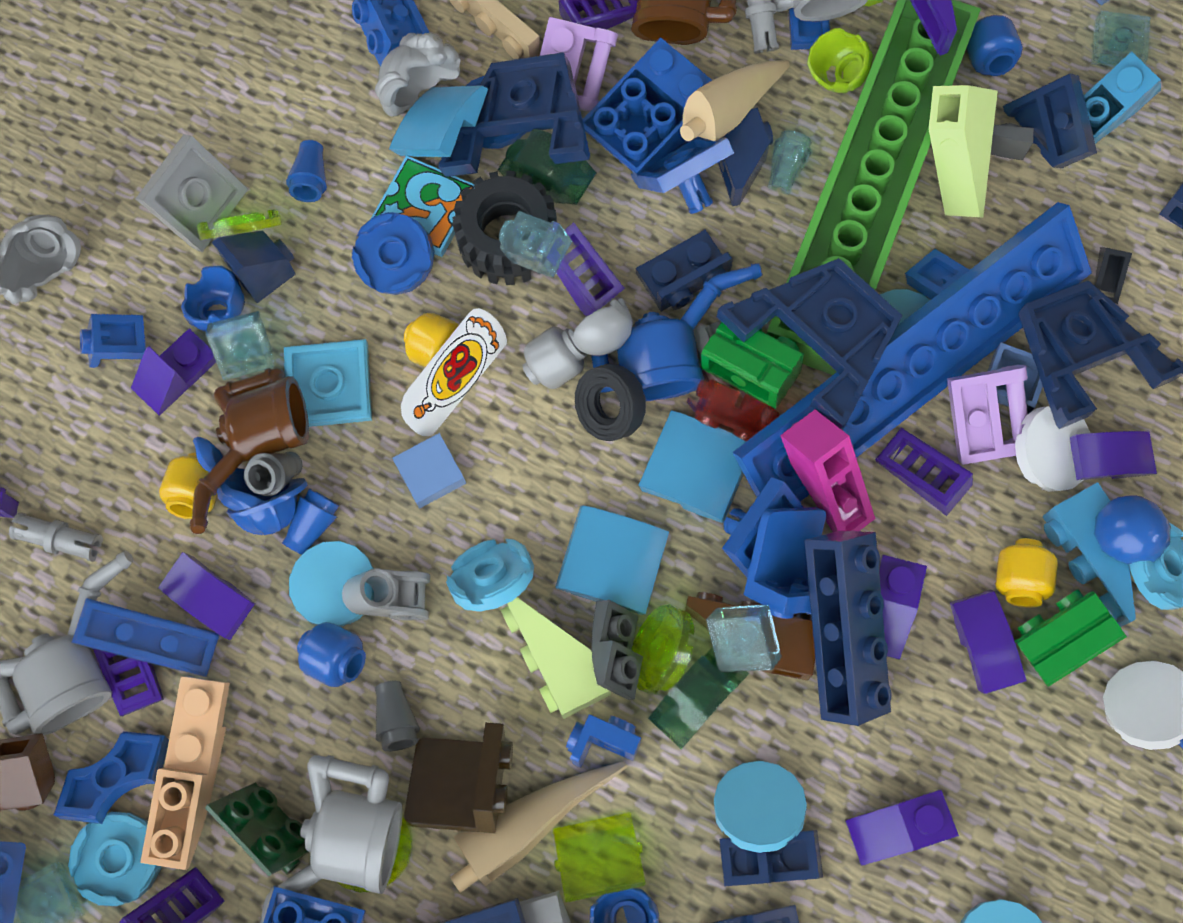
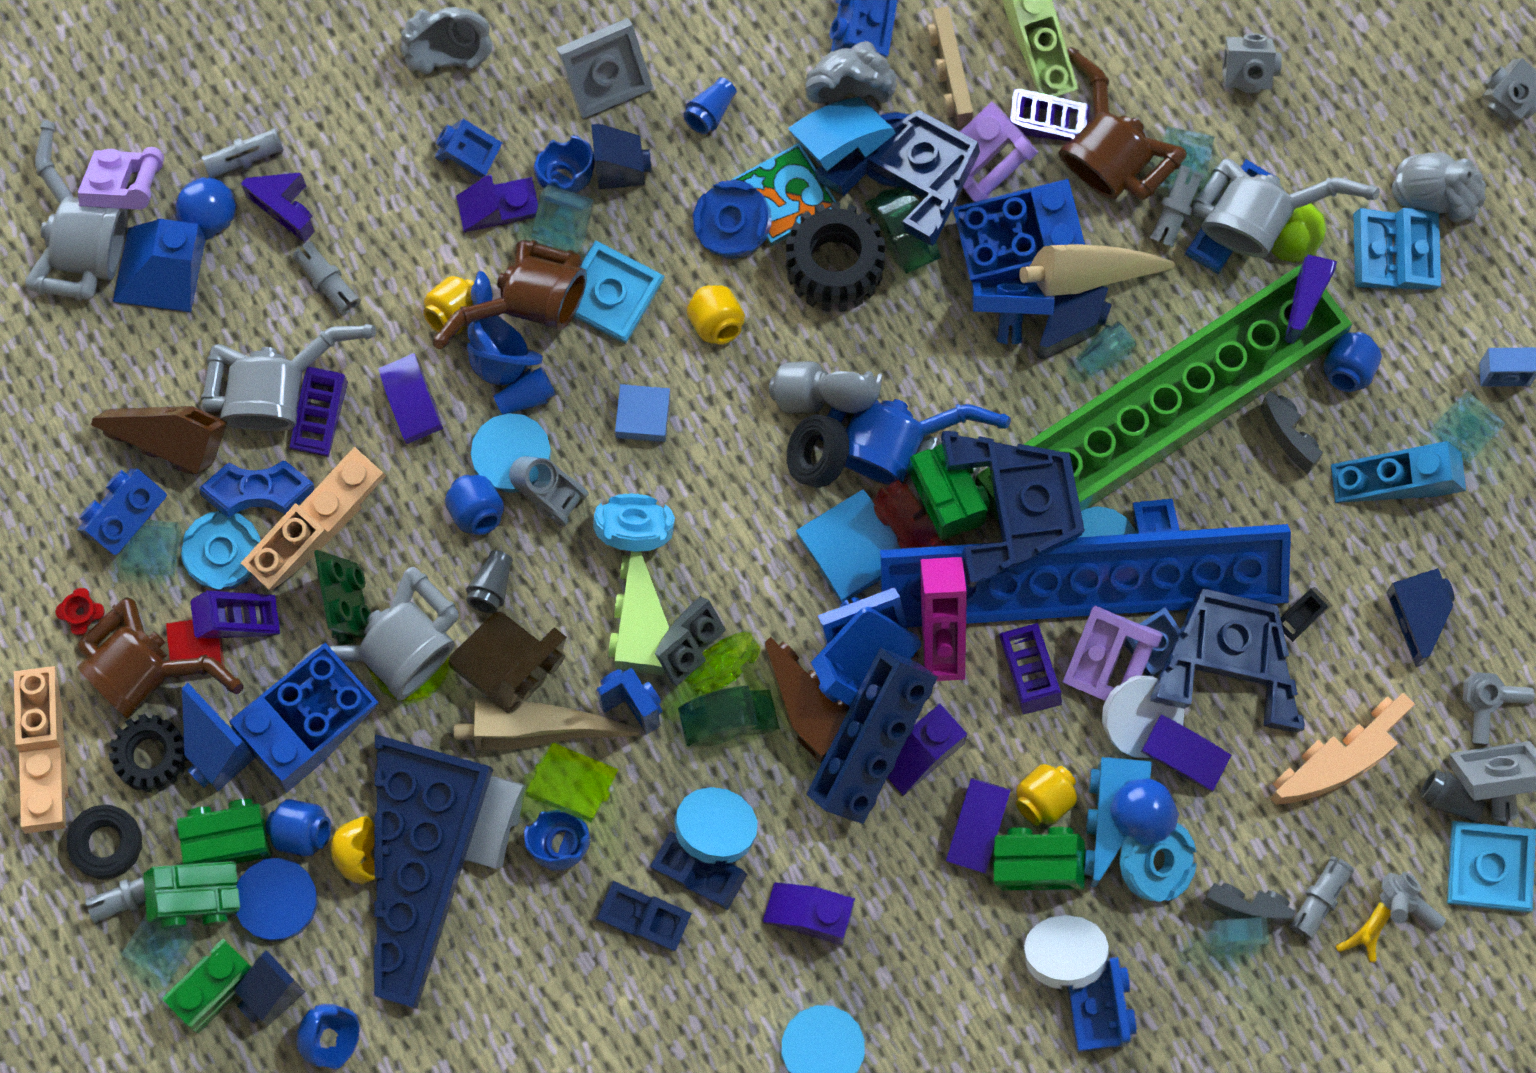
camera: 30 degrees right, 0 degrees up
(145, 637) = (346, 401): blue tile -> none
(239, 224) = (625, 118): clear neon green tile -> none
(271, 472) = (520, 335): dark grey cone -> none
(452, 372) = (713, 347): sticker -> none
(534, 243) = (840, 286): clear light blue brick -> none
(602, 274) = (885, 344): dark purple slope -> none
(612, 559) = (736, 574): dark azure slope -> none
(683, 270) = (950, 382): dark blue bracket -> none
(744, 638) = (786, 692): clear light blue piece -> none
(844, 51) = (1219, 281): lime hair -> none
(961, 145) = (1249, 423): yellowish green slope -> none
(1058, 121) = (1348, 459): dark blue wing -> none

